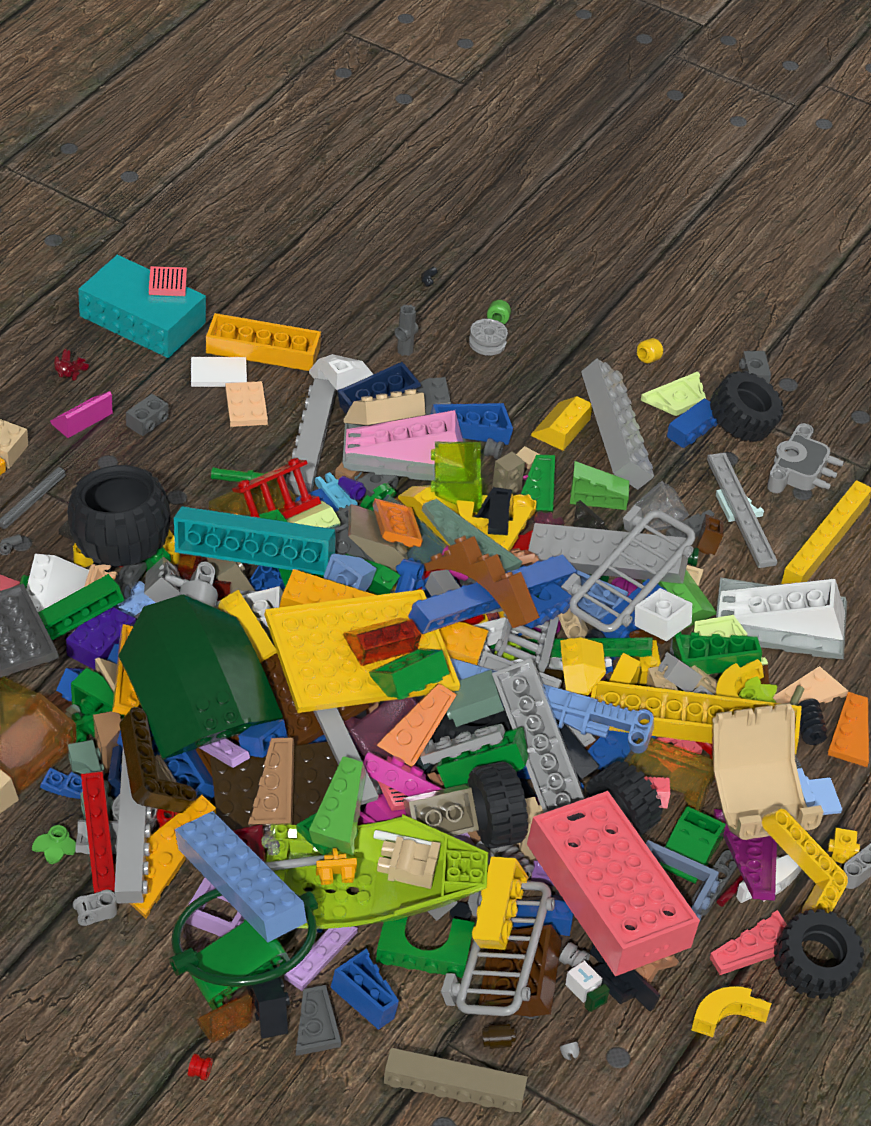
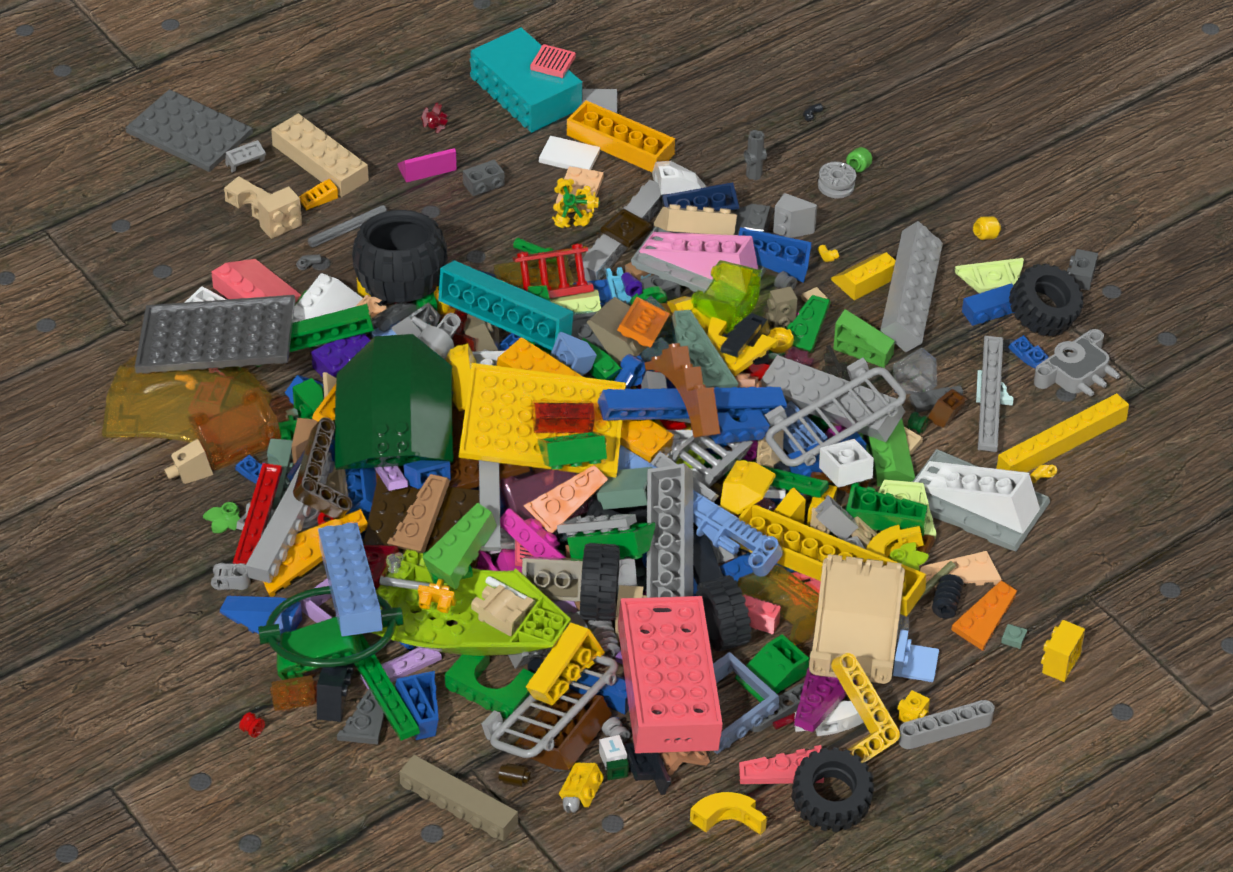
camera: 25 degrees right, 0 degrees up
(145, 940) = (256, 611): none -> blue wedge
(222, 306) = (602, 97): none -> light grey tile
(257, 412) = (569, 203): none -> yellow plant
(318, 431) = (626, 228): none -> dark brown tile
(334, 994) = (387, 696): none -> green plate
(472, 382) = (794, 217): none -> light grey slope
(518, 413) = (828, 255): none -> yellow arm
(569, 1023) = (582, 782): none -> yellow bracket
(755, 464) = (1027, 352): none -> blue slope
(828, 572) = (1043, 471): none -> yellow arm

